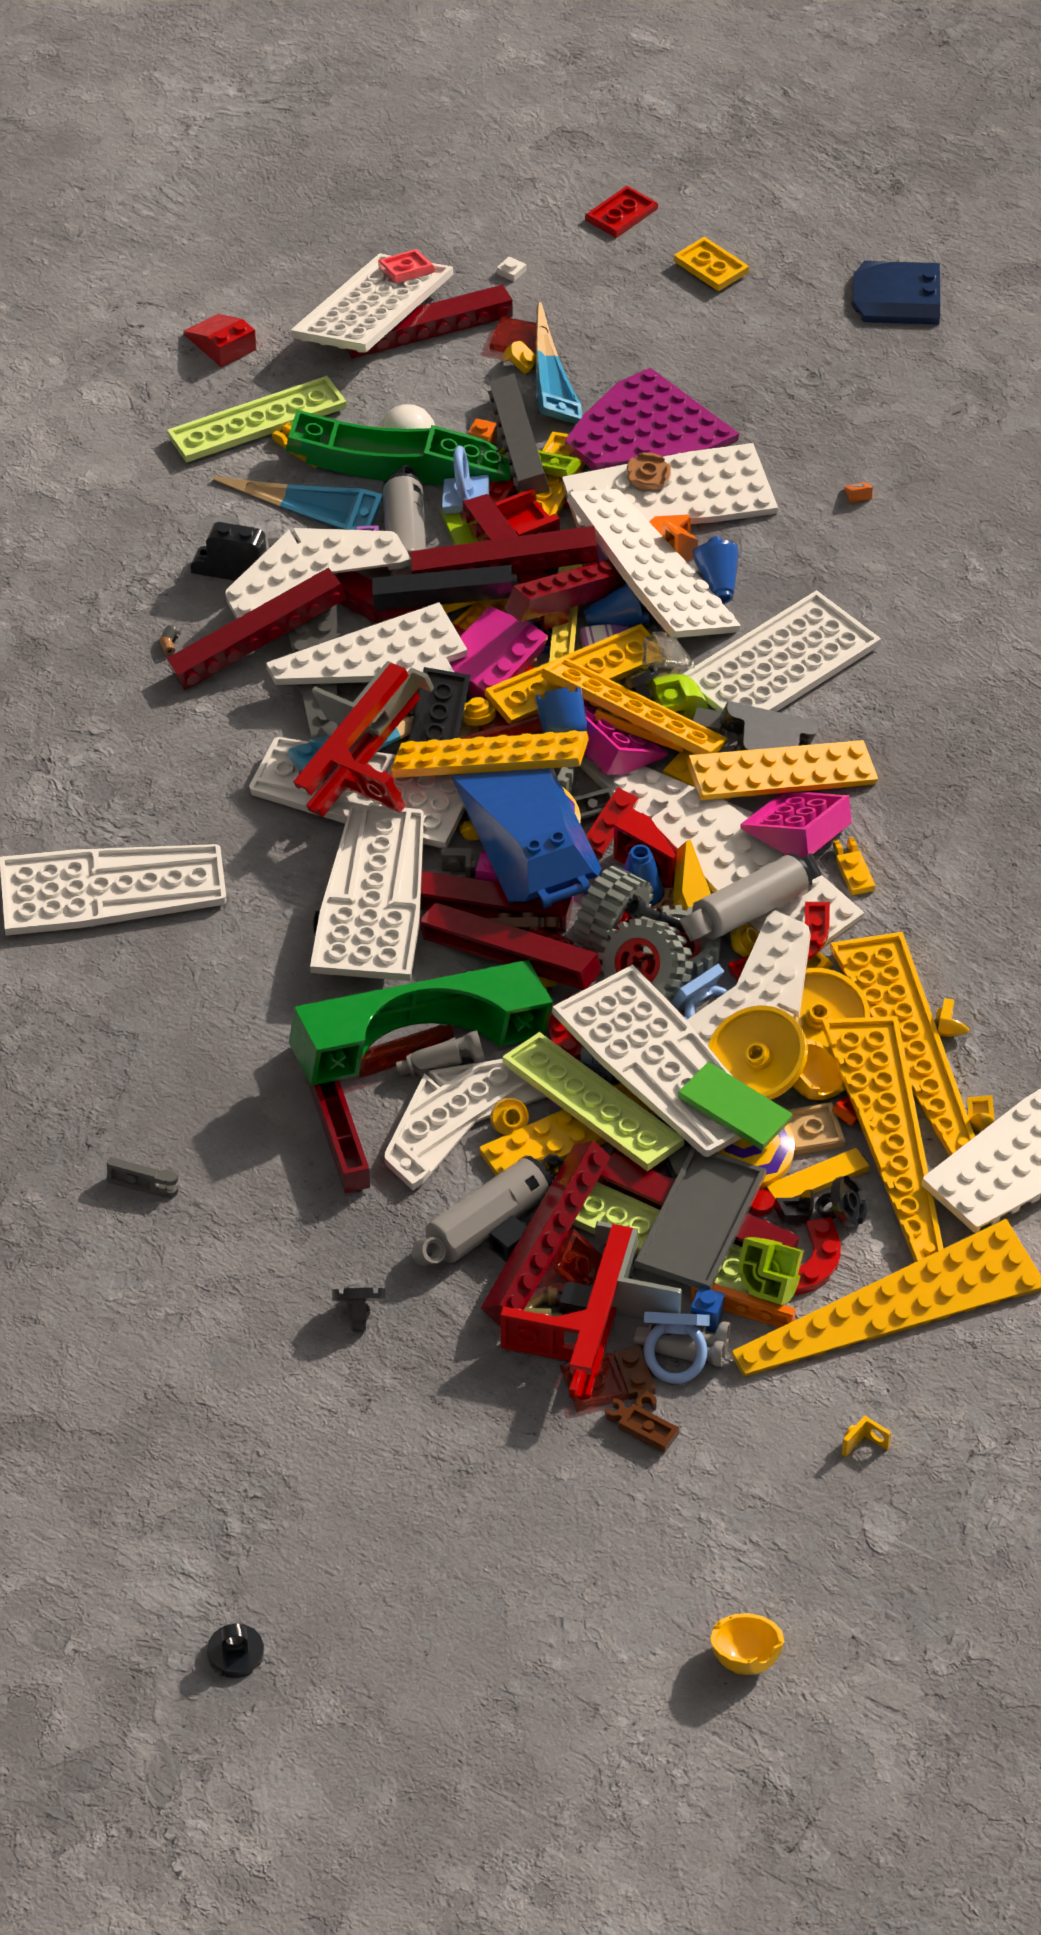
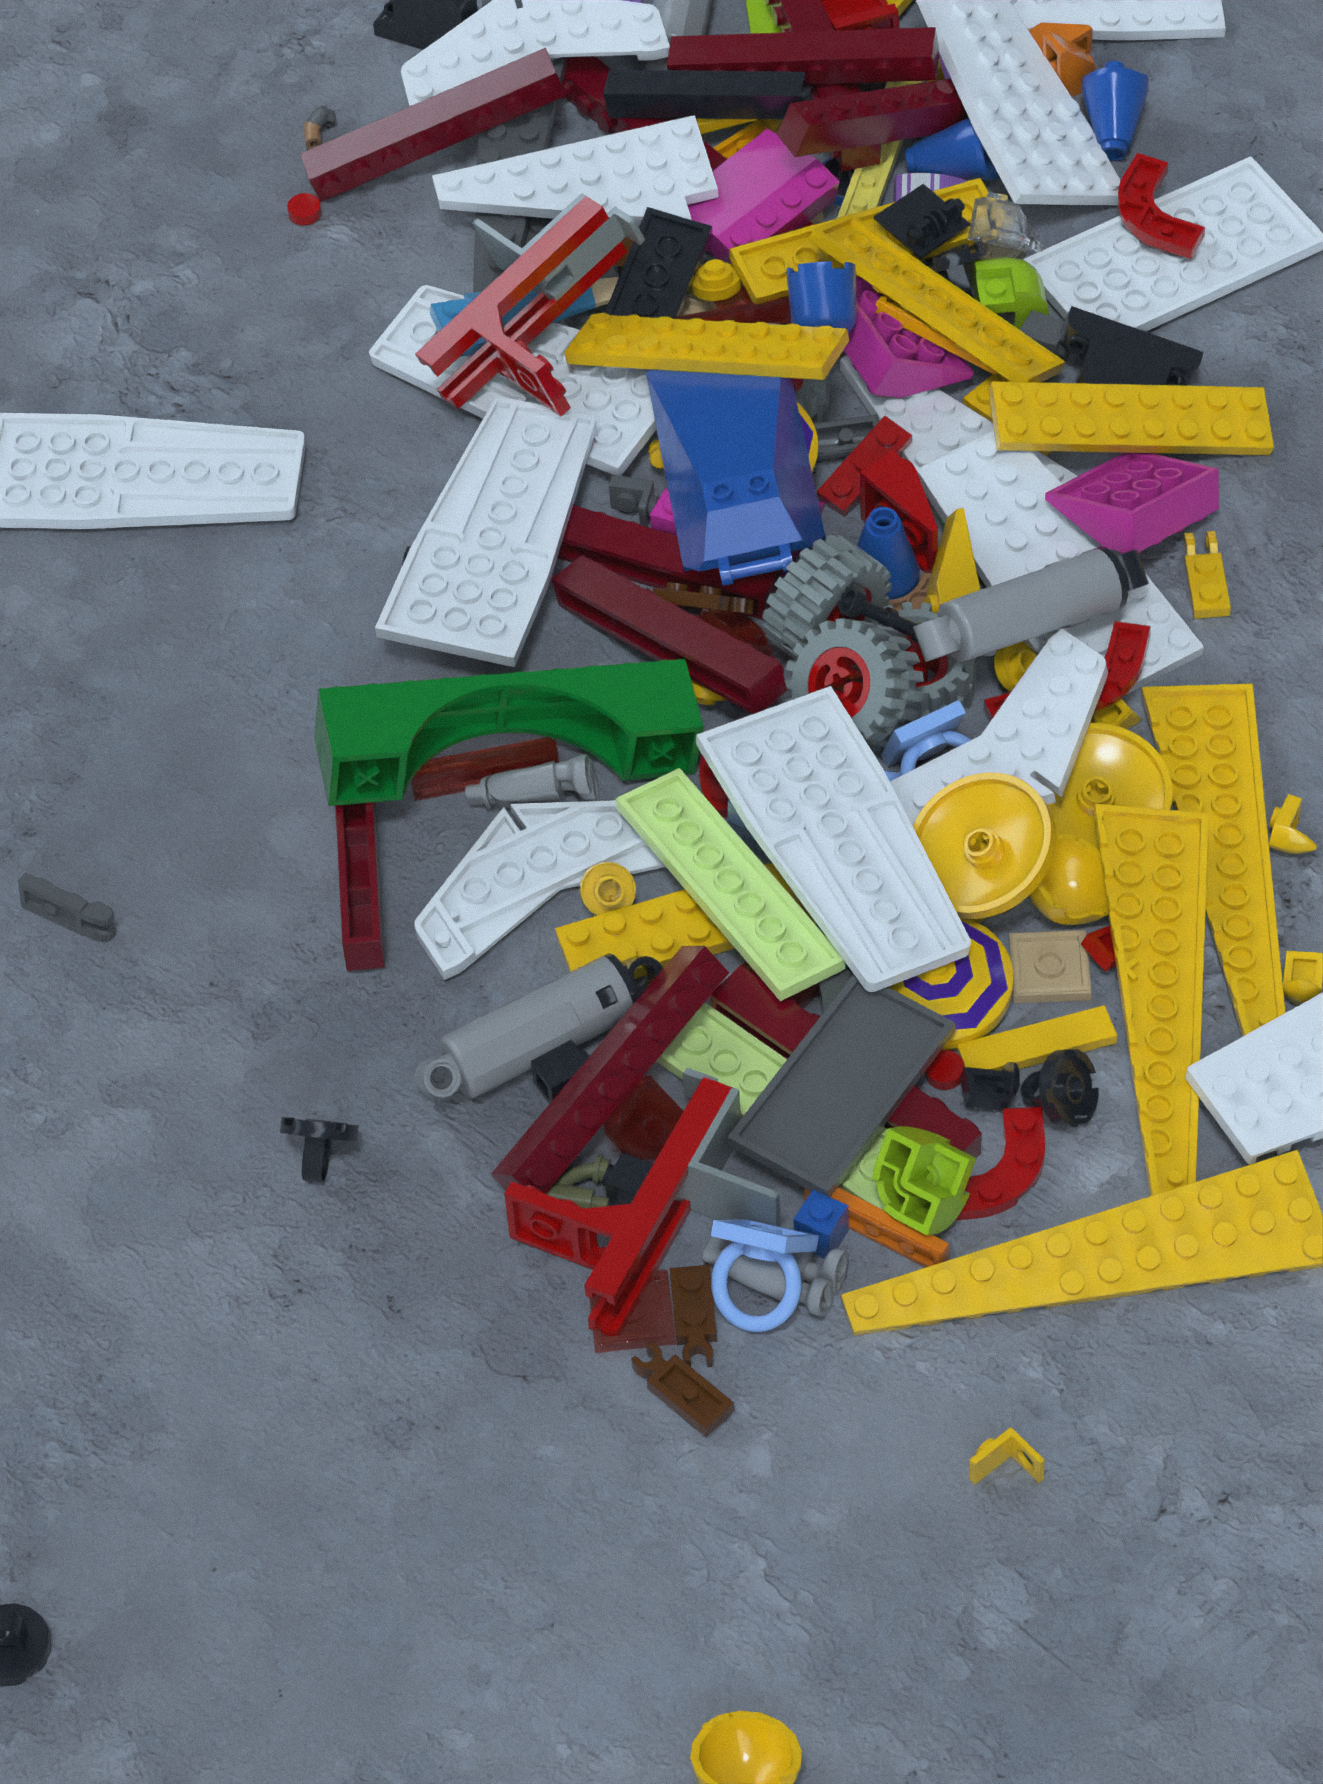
camera: 15 degrees right, 5 degrees up
(175, 696) = (304, 209): none -> red tile
(611, 655) = (923, 220): none -> black hinge
(735, 1105) = (928, 921): bright green tile -> none
(757, 638) = (1145, 218): none -> red plate

